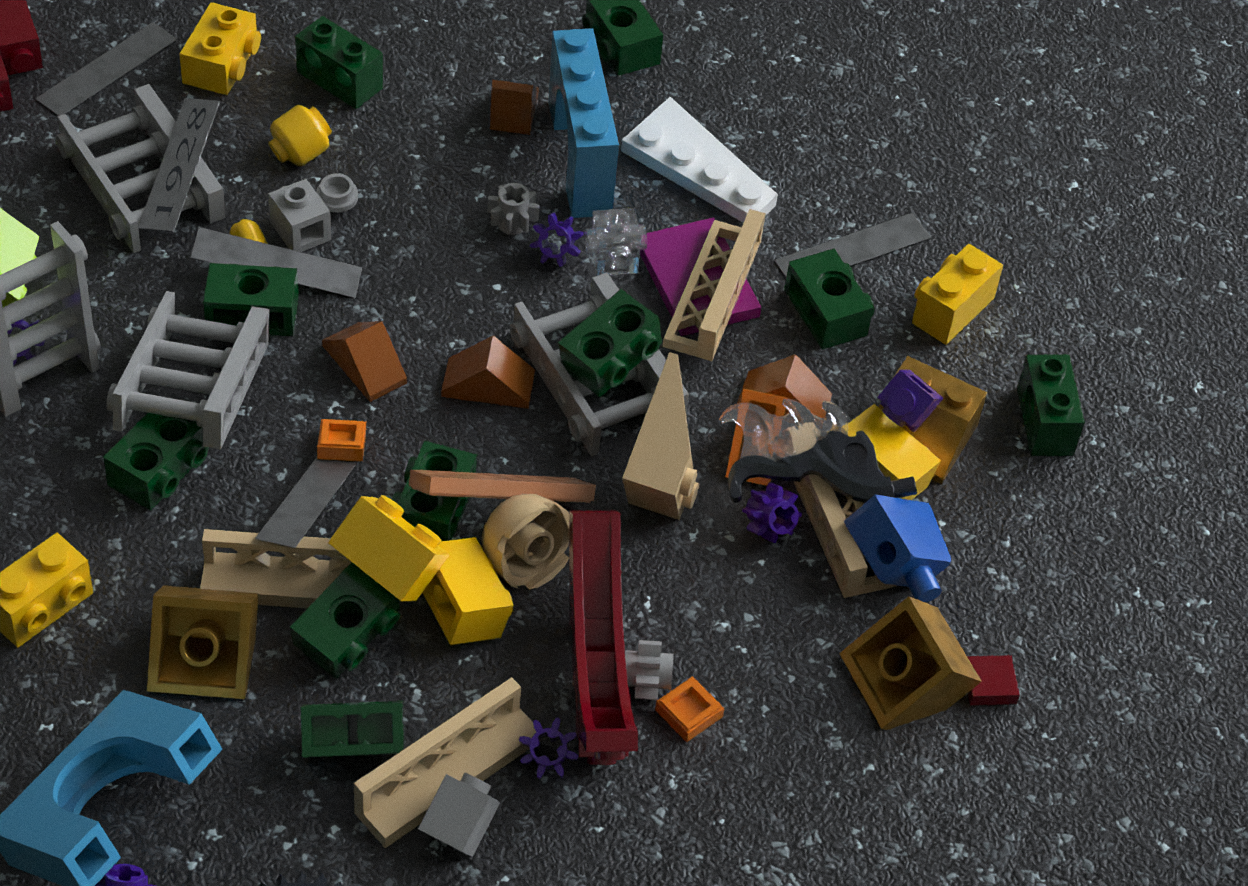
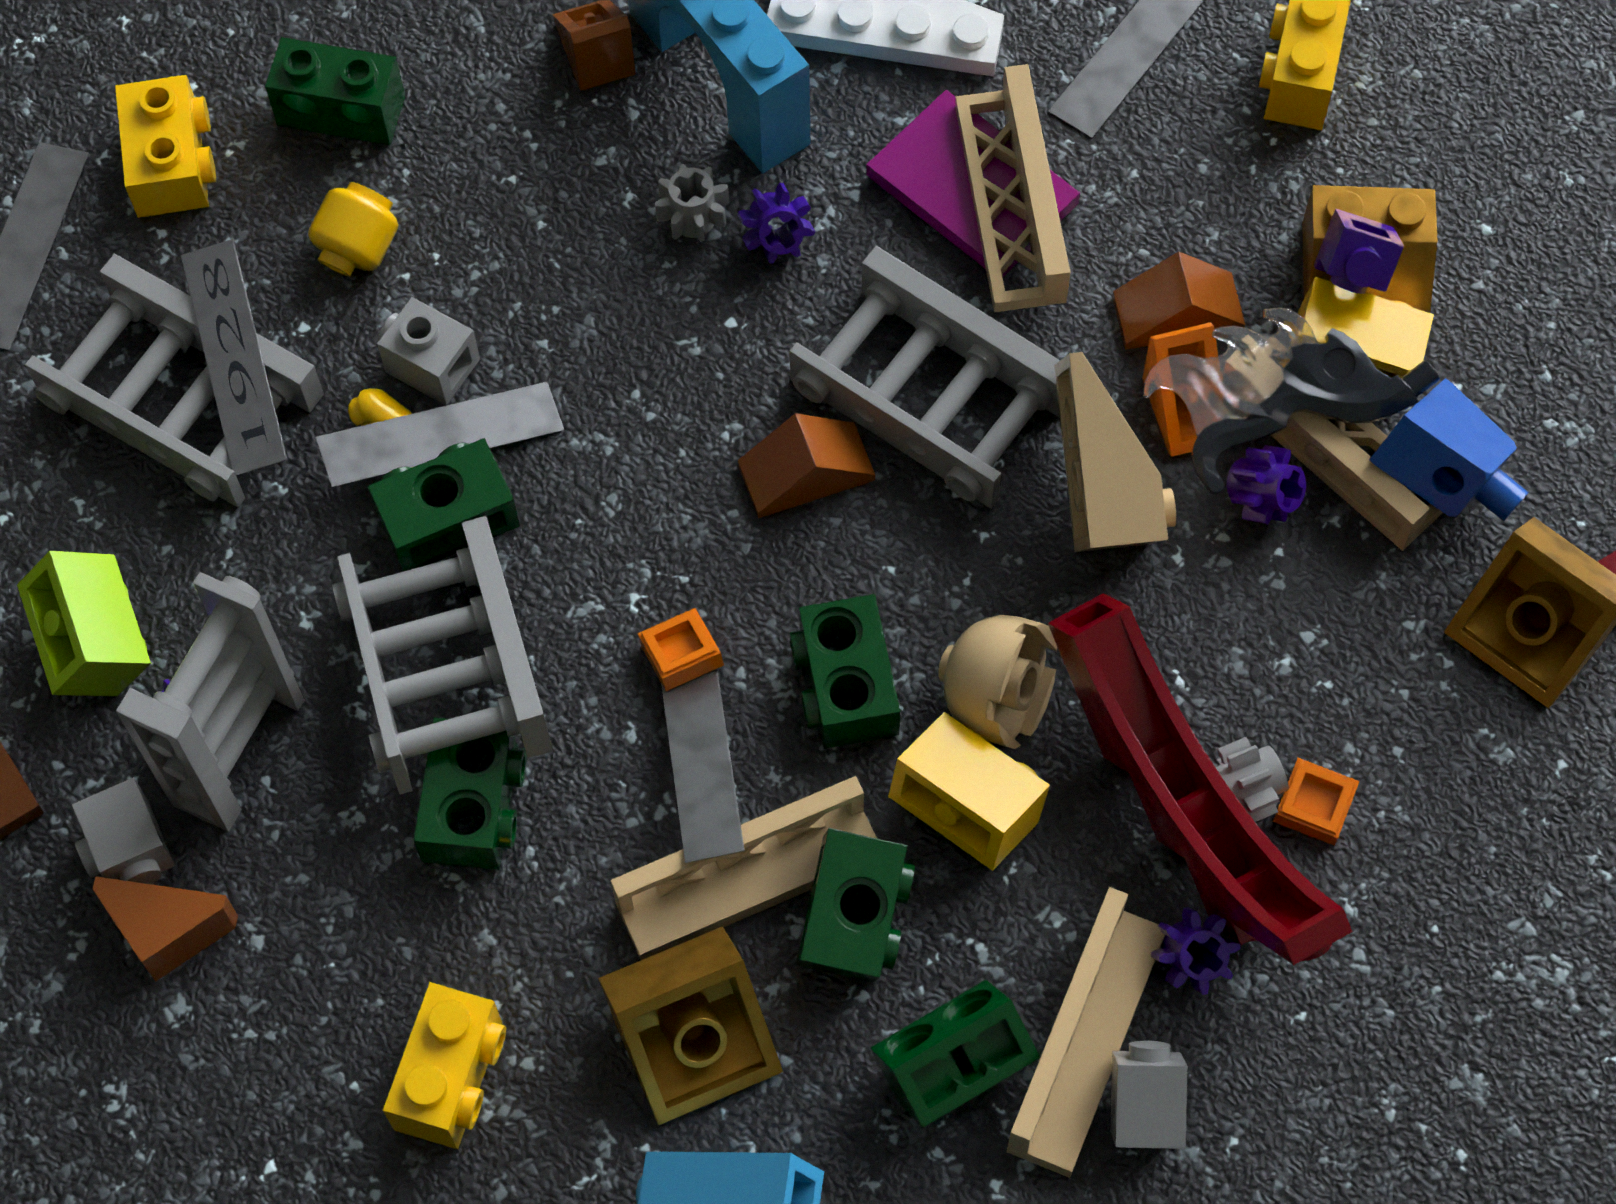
camera: 20 degrees left, 15 degrees up
(338, 192) = (452, 289): light grey plate -> none
(367, 358) = (636, 512): dark orange slope -> none
(389, 547) = (871, 796): yellow brick -> none
(500, 485) = (934, 626): nougat tile -> none
(615, 241) = (850, 188): clear brick -> none
(618, 333) = (939, 351): dark green brick -> none
(829, 298) = (1167, 167): dark green brick -> none
(1050, 405) = (1504, 161): dark green brick -> none

